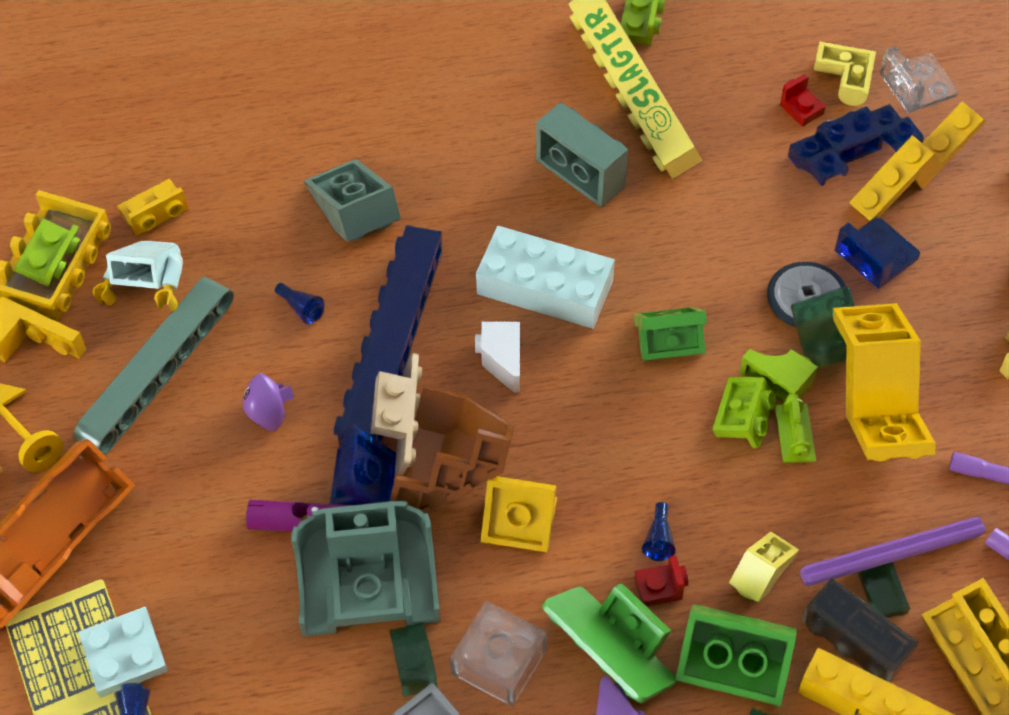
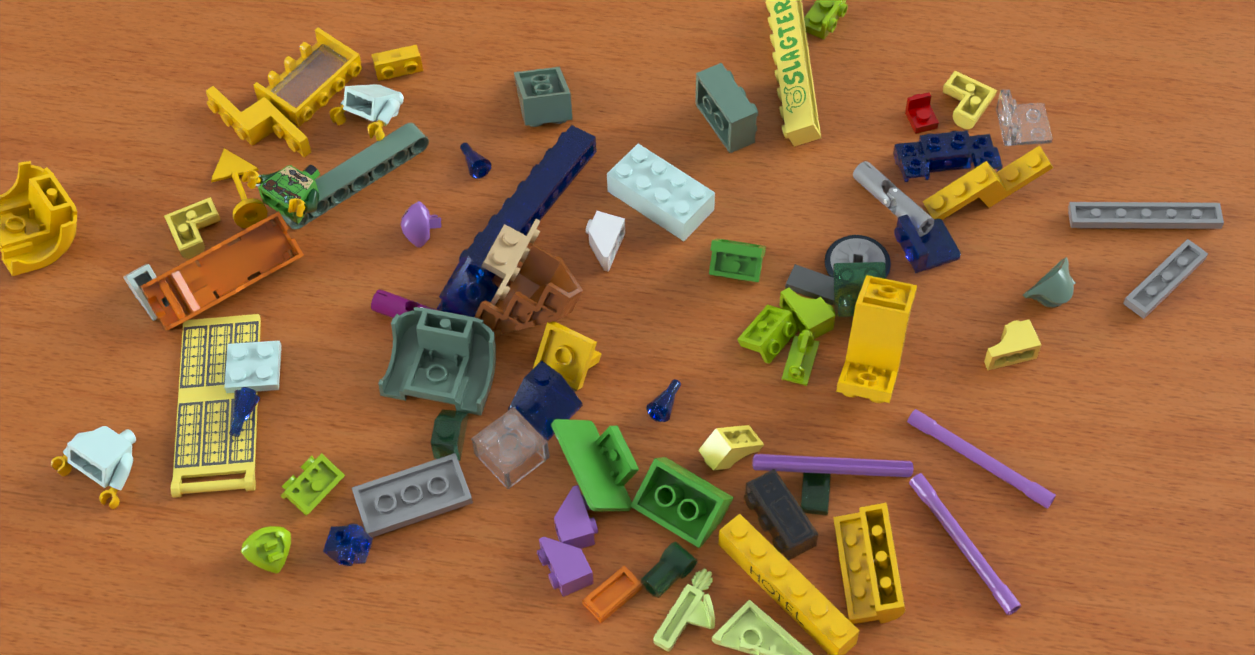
camera: 20 degrees right, 0 degrees up
(47, 251) = (307, 74): lime bracket -> none
(84, 408) = (287, 190): none -> torso
(515, 577) = (544, 398): none -> clear blue slope
(661, 583) = (650, 437): red bracket -> none
(767, 336) = (811, 284): none -> dark grey tile
(813, 206) = (892, 197): none -> light grey piece

